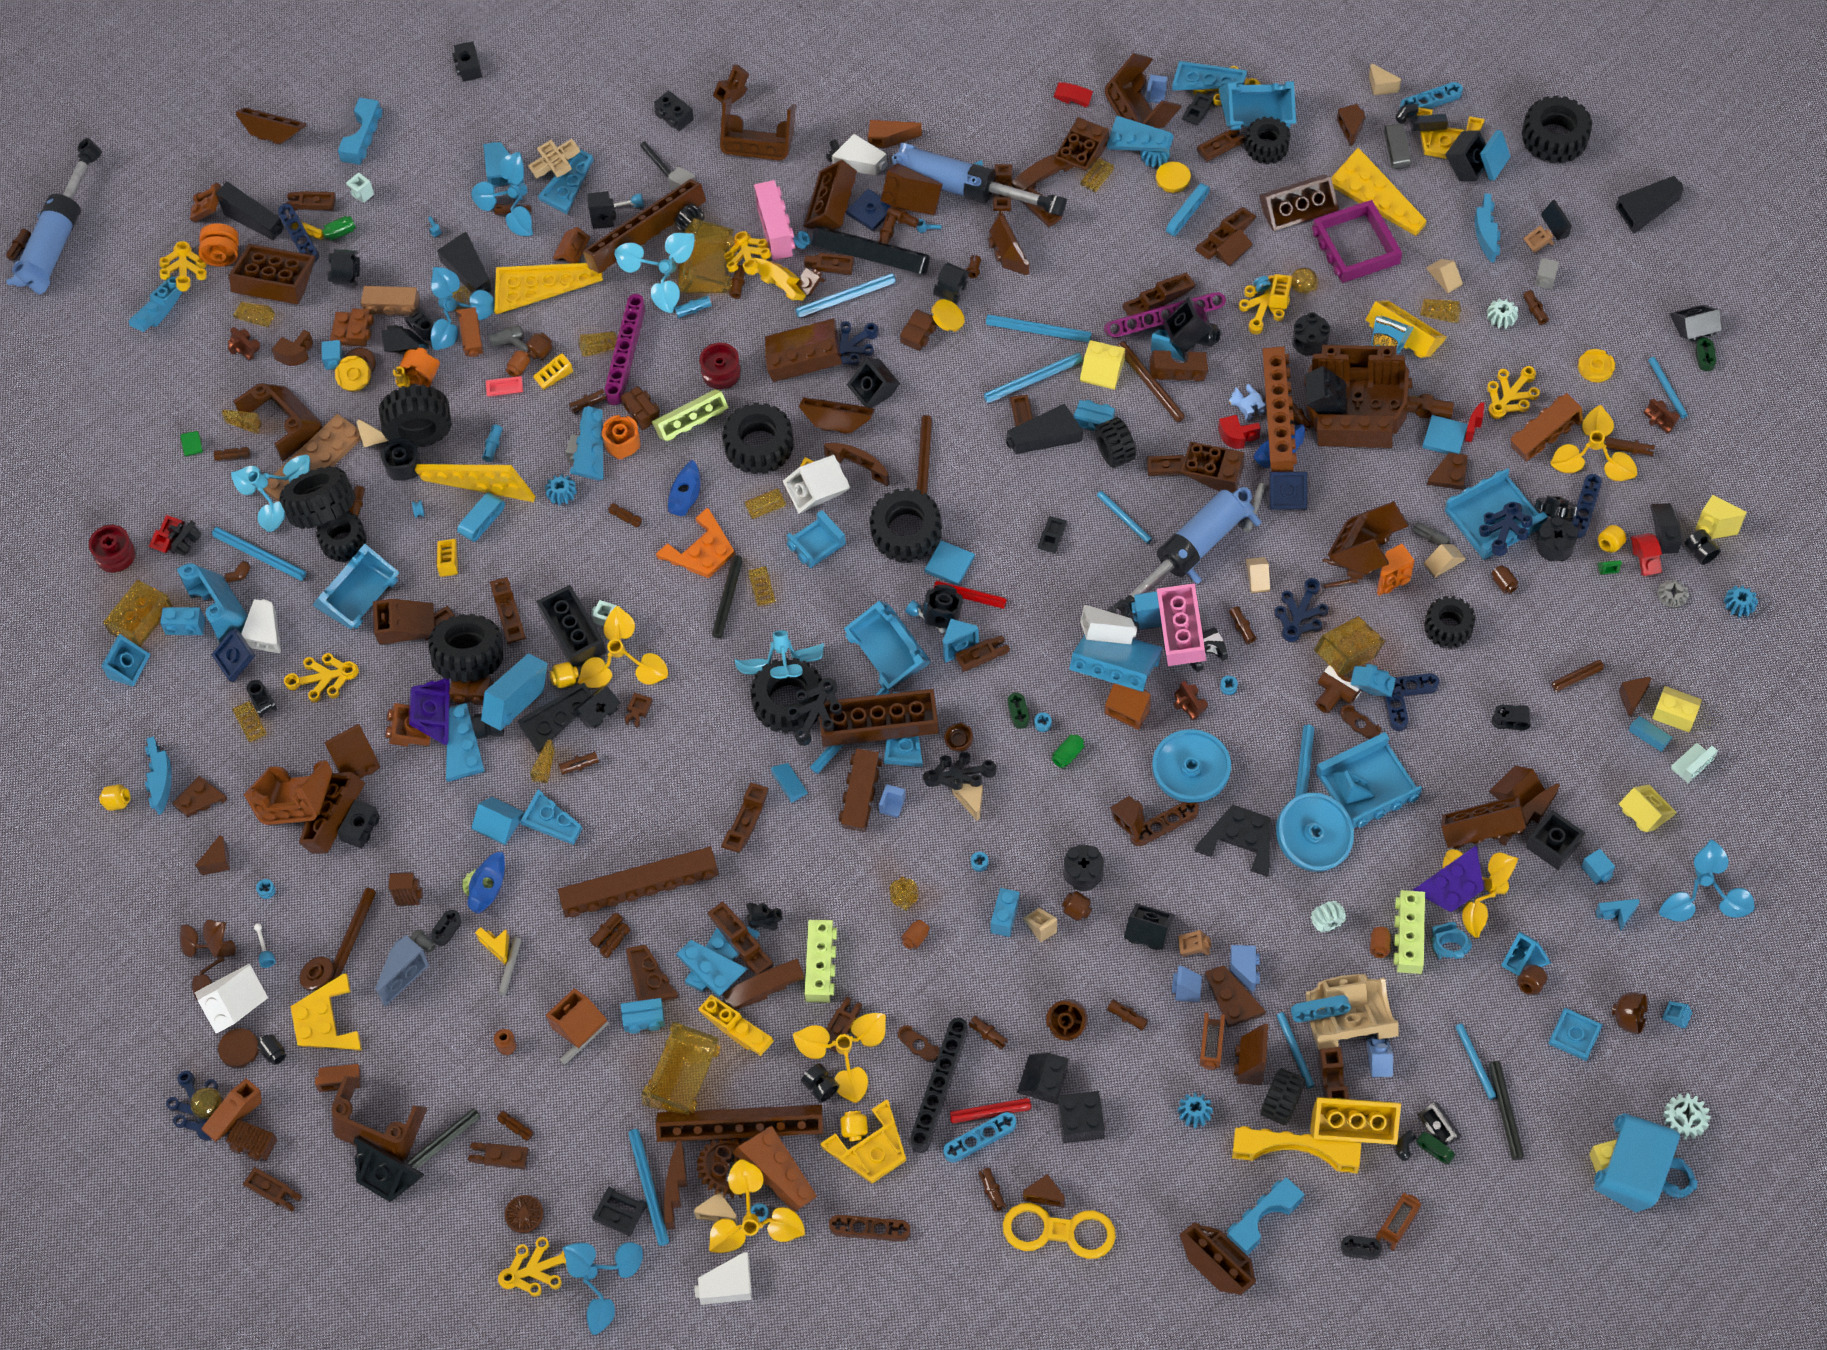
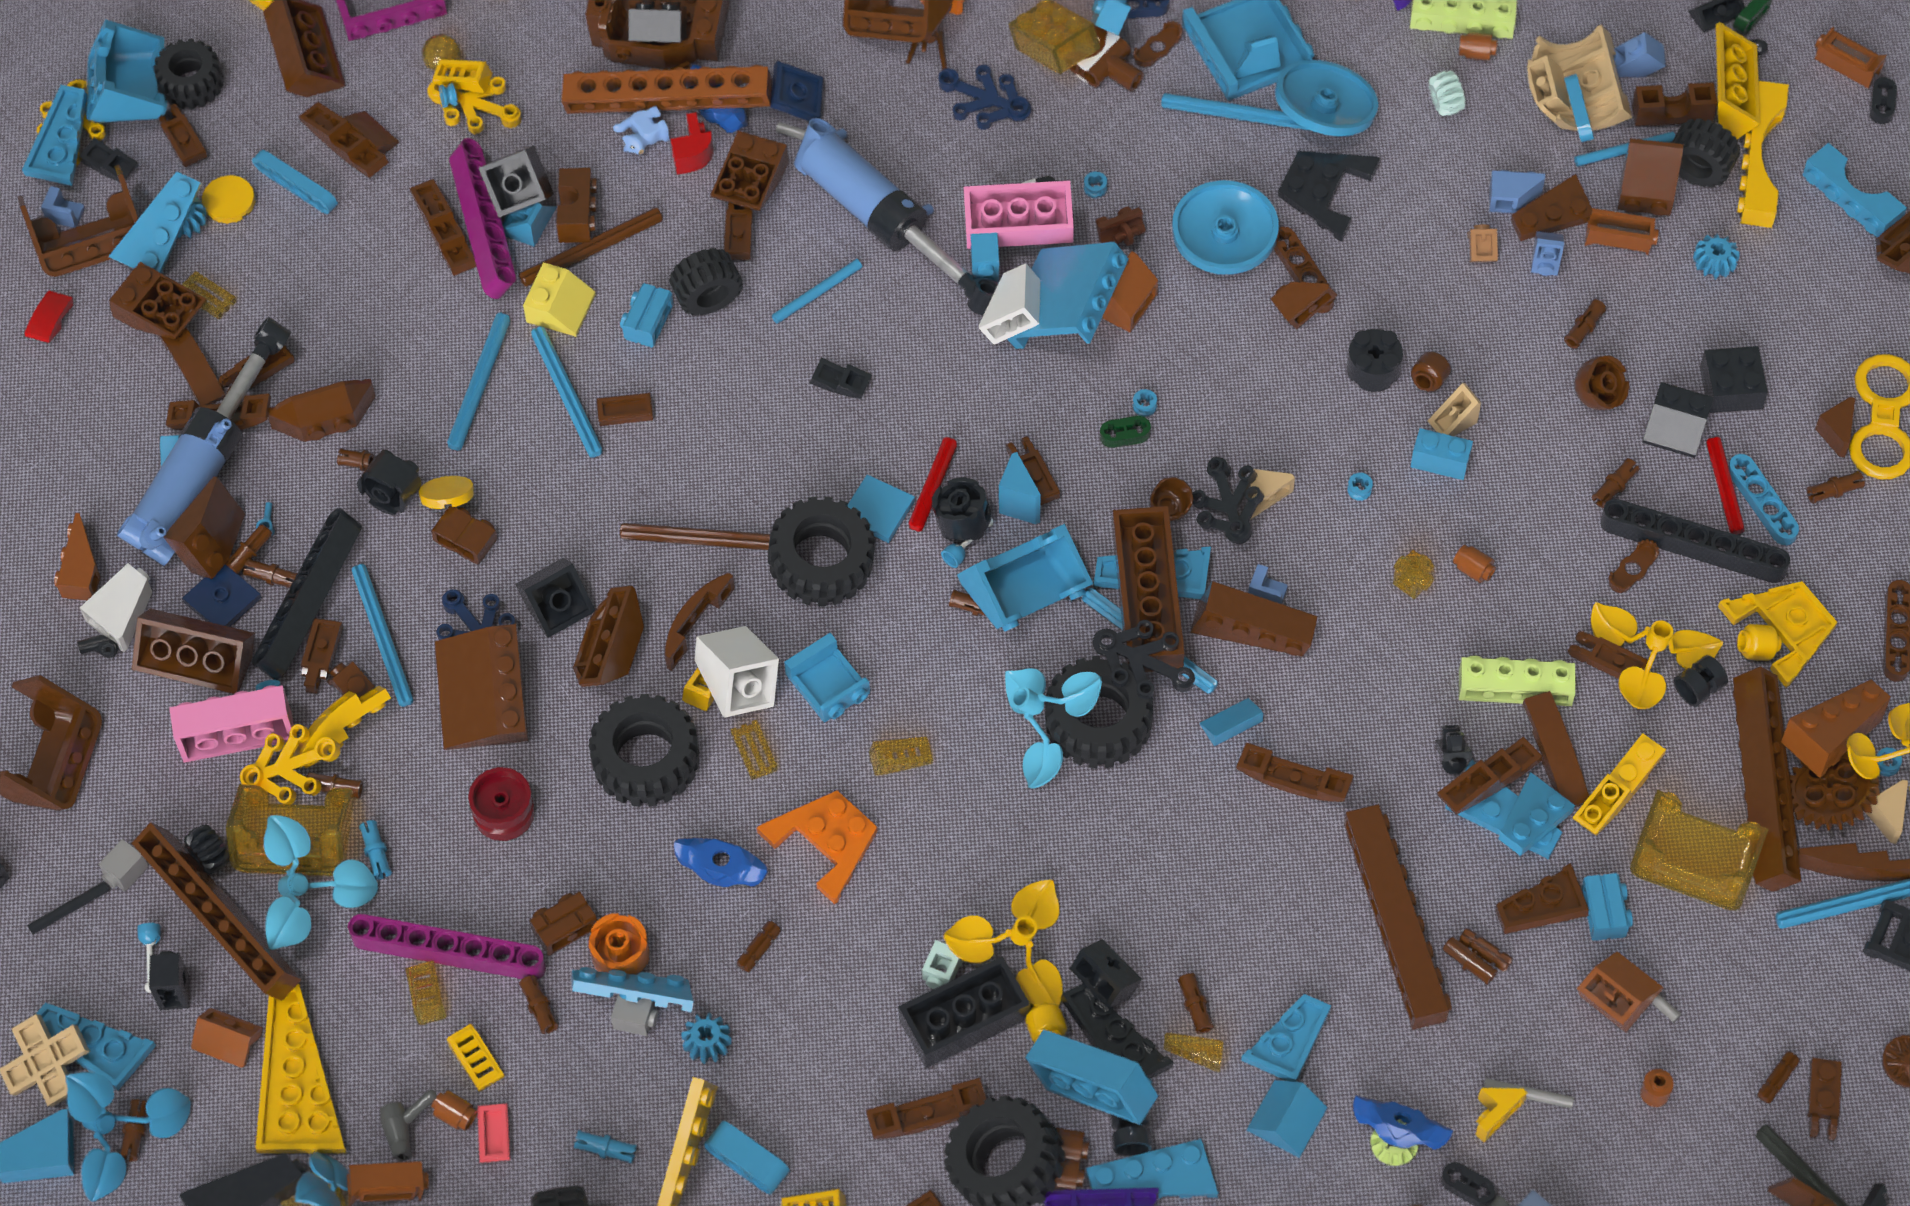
camera: 90 degrees left, 0 degrees up
(539, 346) = (425, 1075): reddish brown head -> none
(638, 707) = (1103, 919): reddish brown plate -> none
(690, 414) = (589, 847): yellowish green brick -> none
(727, 596) = (915, 801): pearl dark grey axle -> none
(1045, 431) = (664, 373): black slope -> none
(1068, 751) = (1193, 372): green head -> none
(1148, 926) = (1458, 291): black slope -> none
(1242, 625) = (1004, 161): reddish brown pin -> none
(1258, 574) = (921, 138): tan slope -> none
(1310, 334) = (540, 47): black brick -> none

